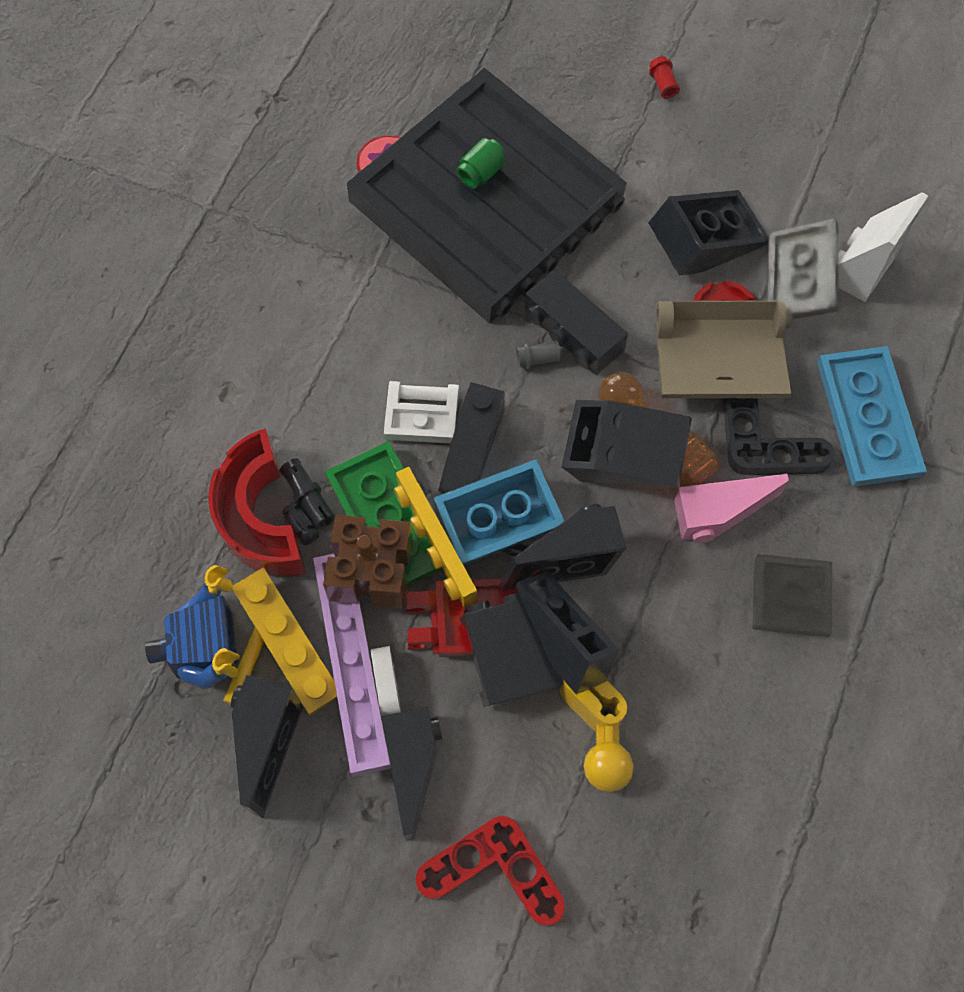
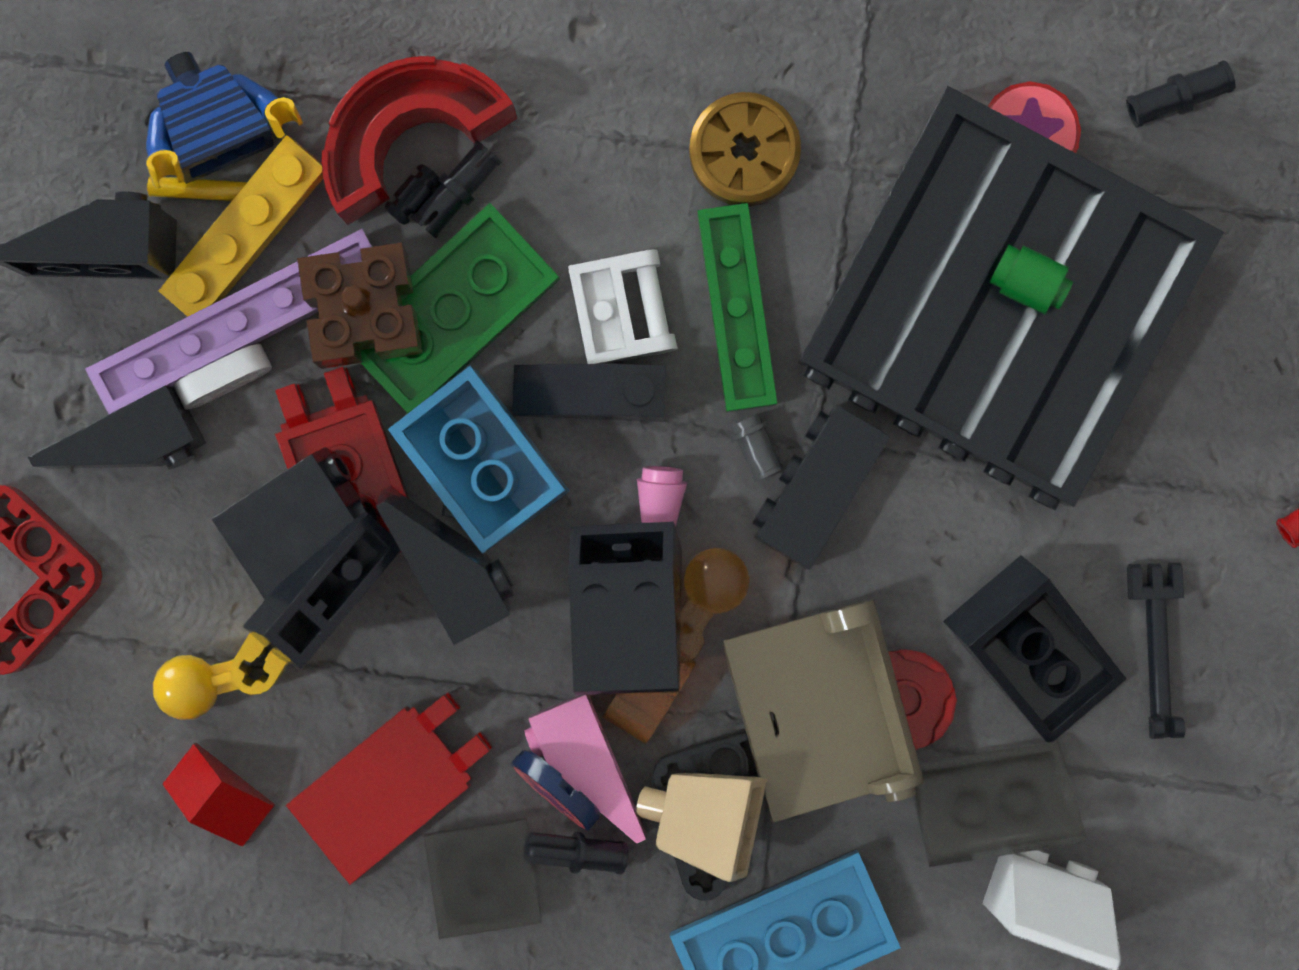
camera: 75 degrees right, 20 degrees up
(324, 321) = (751, 119): none -> pearl gold wheel
(393, 83) = (1180, 93): none -> black pin
(441, 551) = (435, 367): yellow plate -> none
(443, 343) = (737, 307): none -> green plate
(553, 416) = (660, 493): none -> bright pink cone
(684, 163) = (1155, 593): none -> black hinge
(692, 771) = (216, 797): none -> red slope
(713, 646) = (386, 788): none -> red tile
(740, 523) = (555, 789): none -> dark blue tile
(781, 429) = (707, 820): none -> tan torso
(786, 525) = (576, 852): none -> black axle

